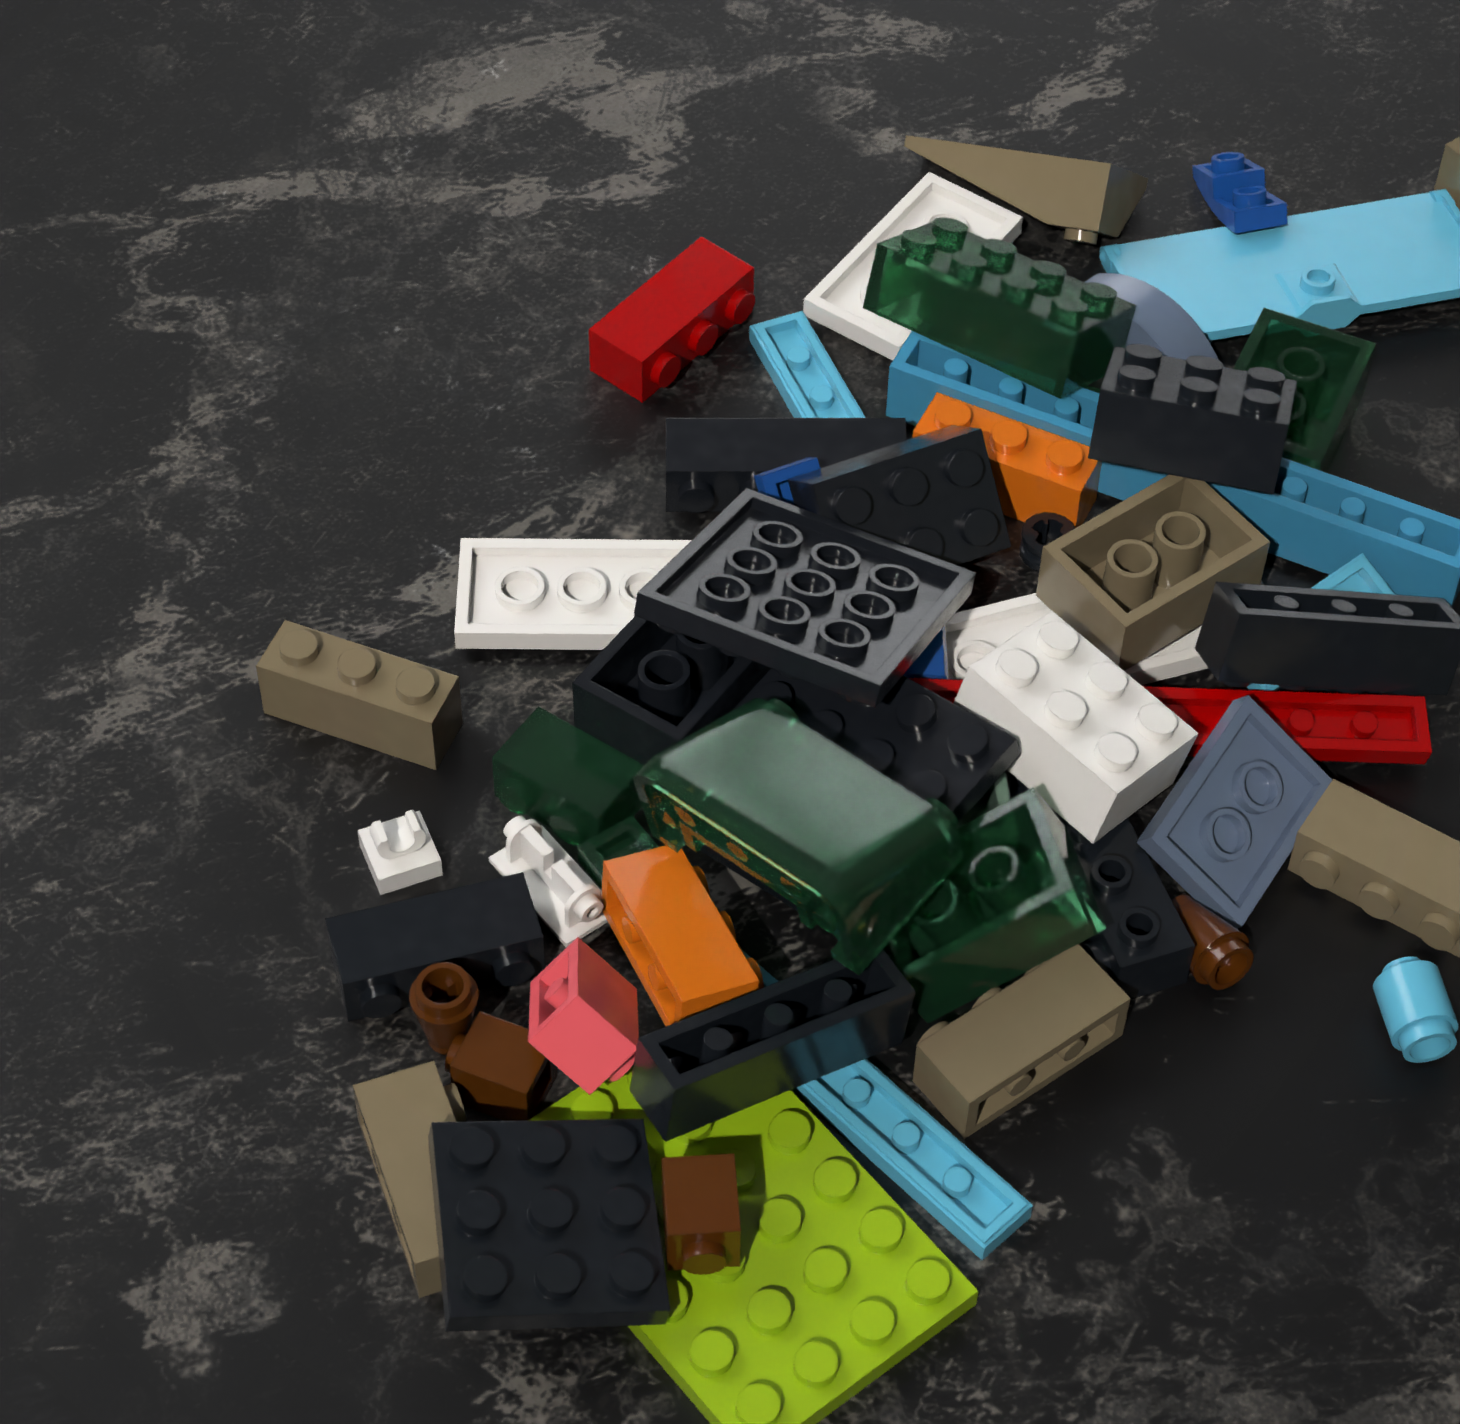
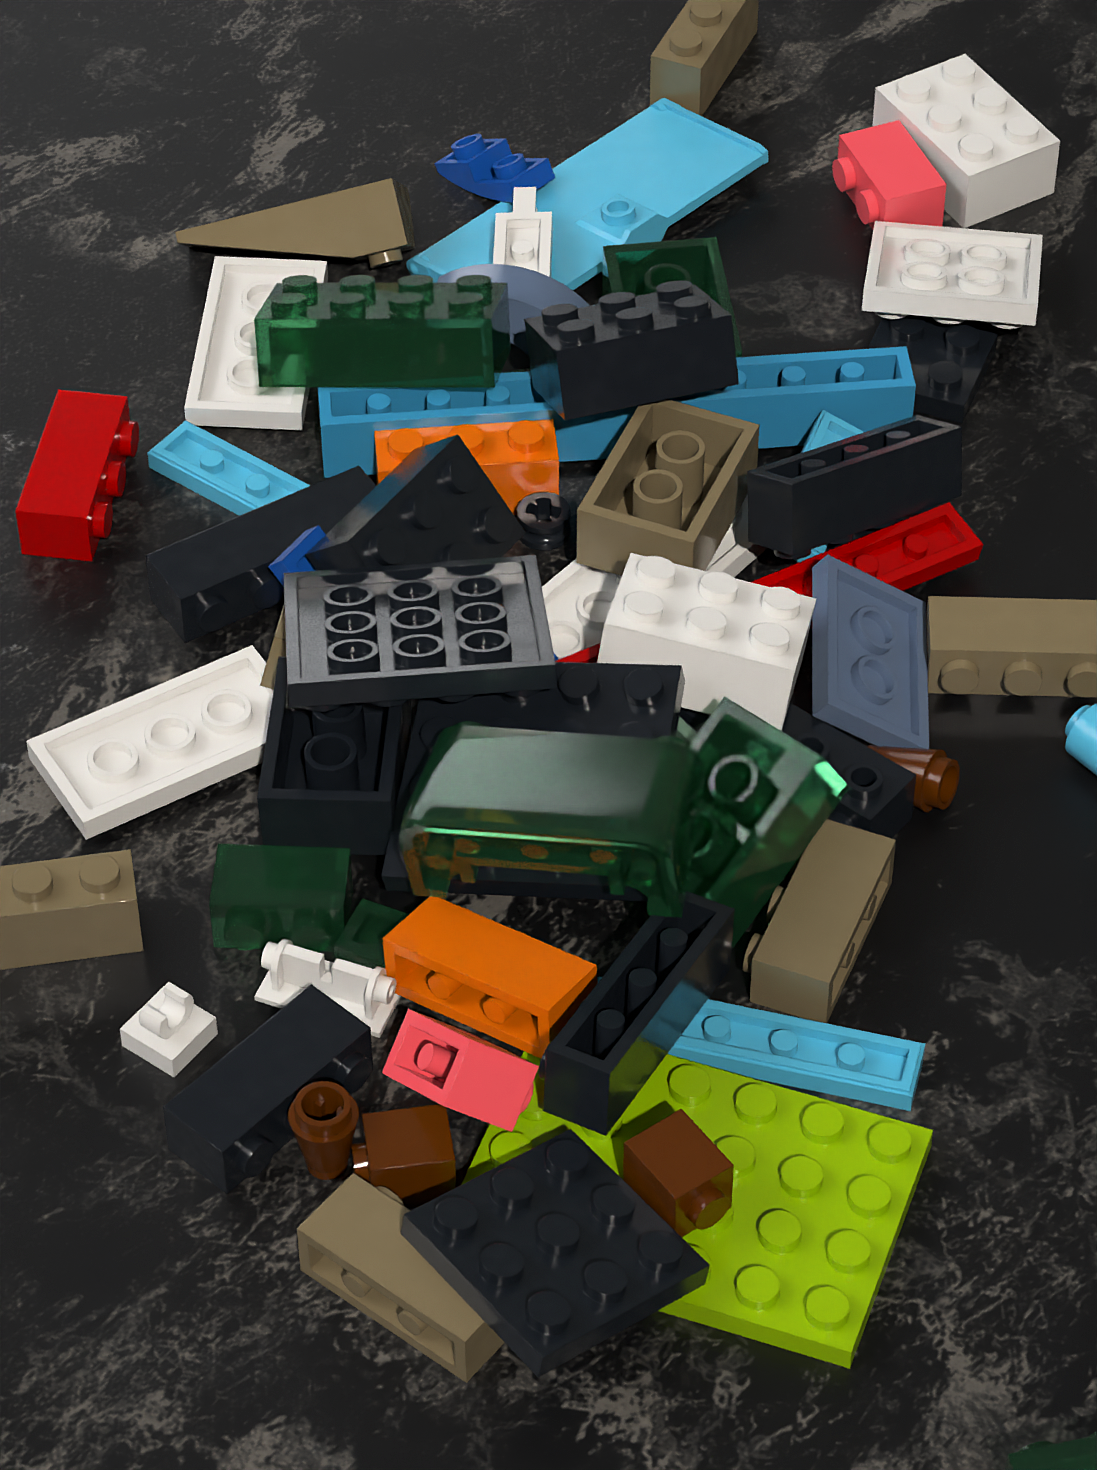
camera: 30 degrees left, 5 degrees down
(1207, 271) = (524, 235): none -> white hinge

